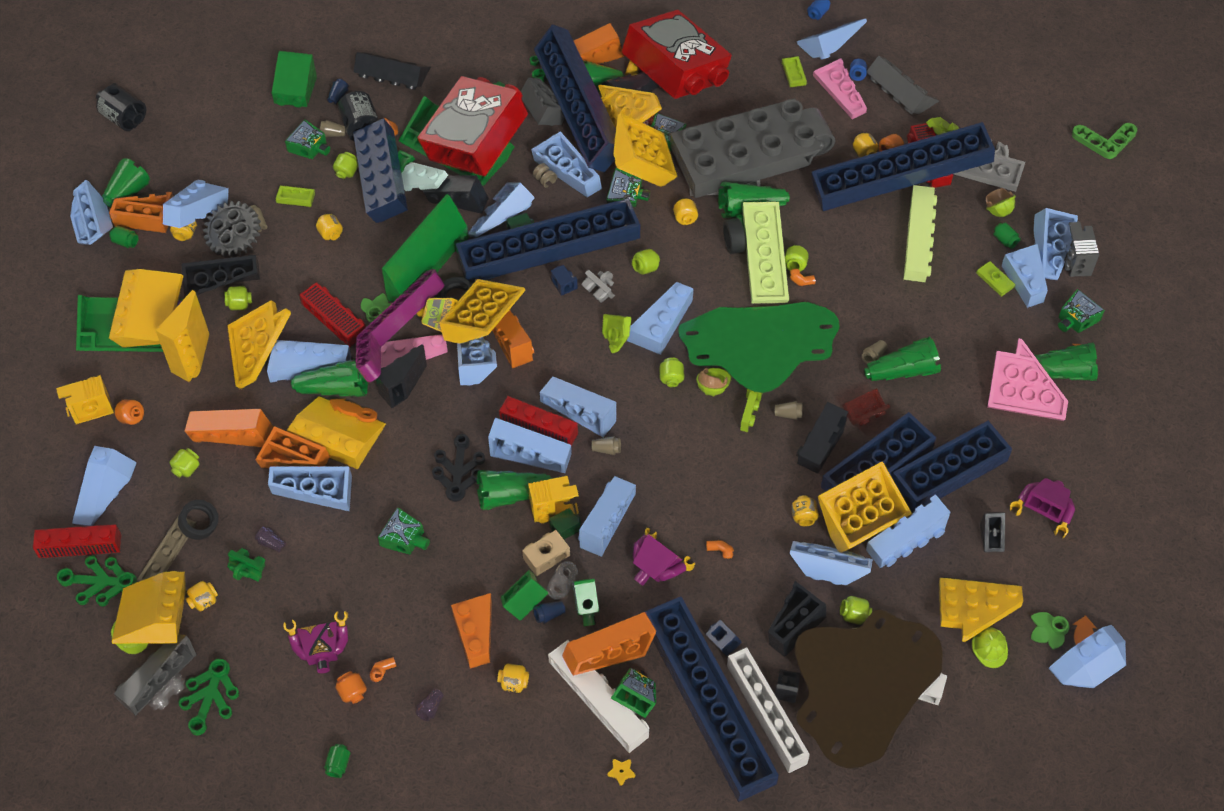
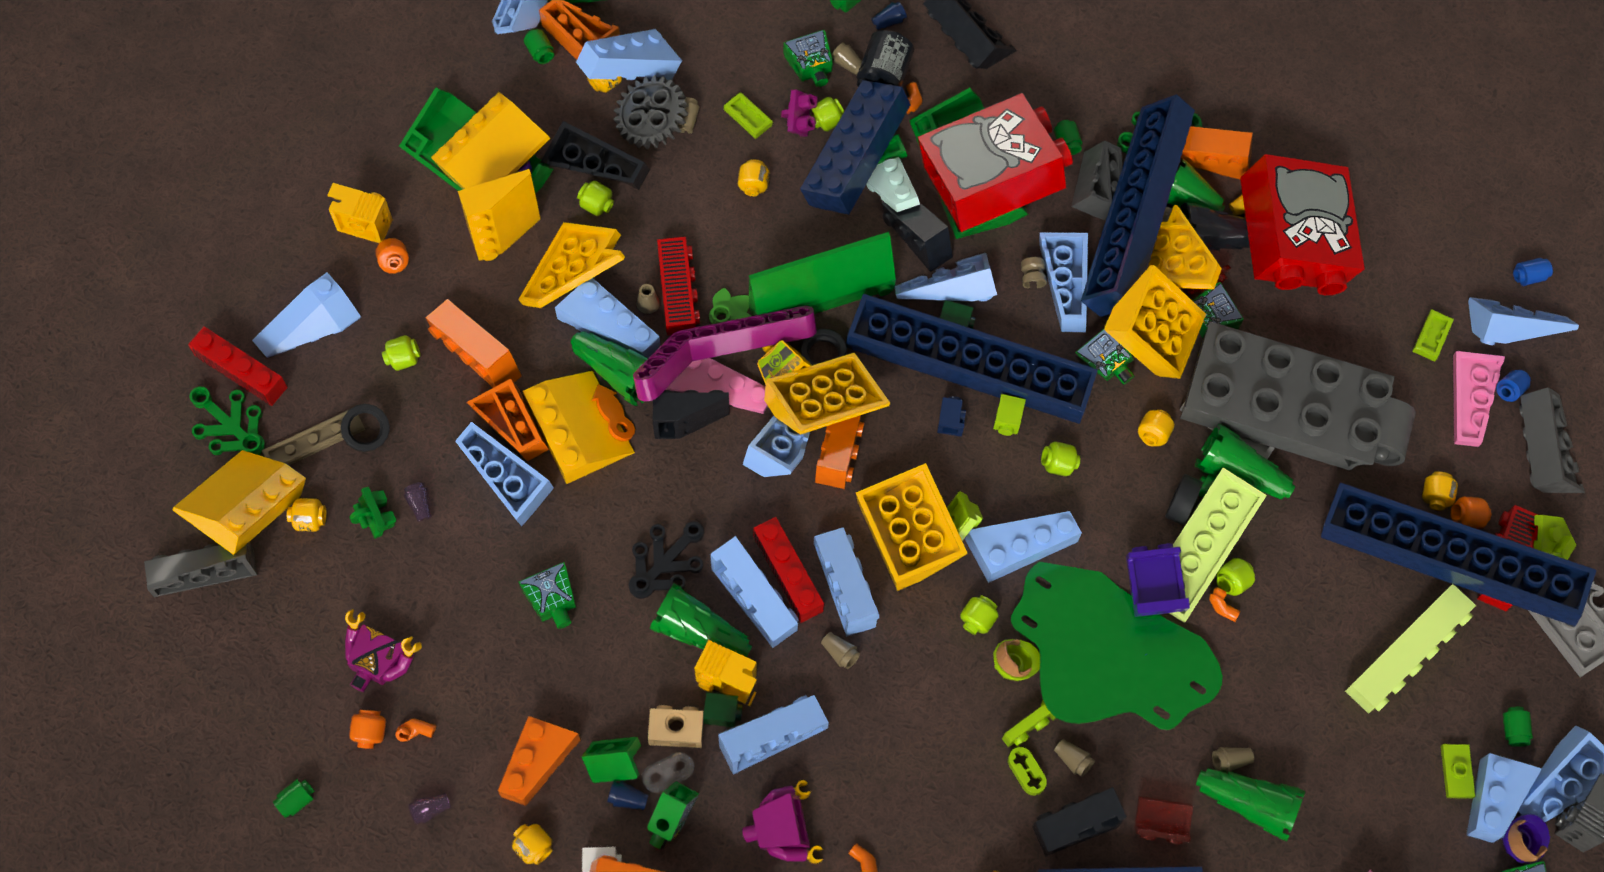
camera: 35 degrees right, 10 degrees up
(173, 686) = (207, 594): clear plate -> none
(209, 693) = (235, 629): green plant -> none
(320, 332) = (647, 299): none -> dark tan cone
(326, 175) = (798, 113): none -> magenta hips
(591, 350) = (911, 526): none -> yellow slope
(592, 281) = (983, 441): light grey hips -> none
(596, 257) = (1009, 415): none -> lime brick
(756, 286) = (1156, 580): none -> dark purple panel
(769, 436) = (1022, 775): none -> lime beam
(1000, 202) = (1545, 679): piece -> none
(1059, 286) = (1526, 839): none -> dark purple piece

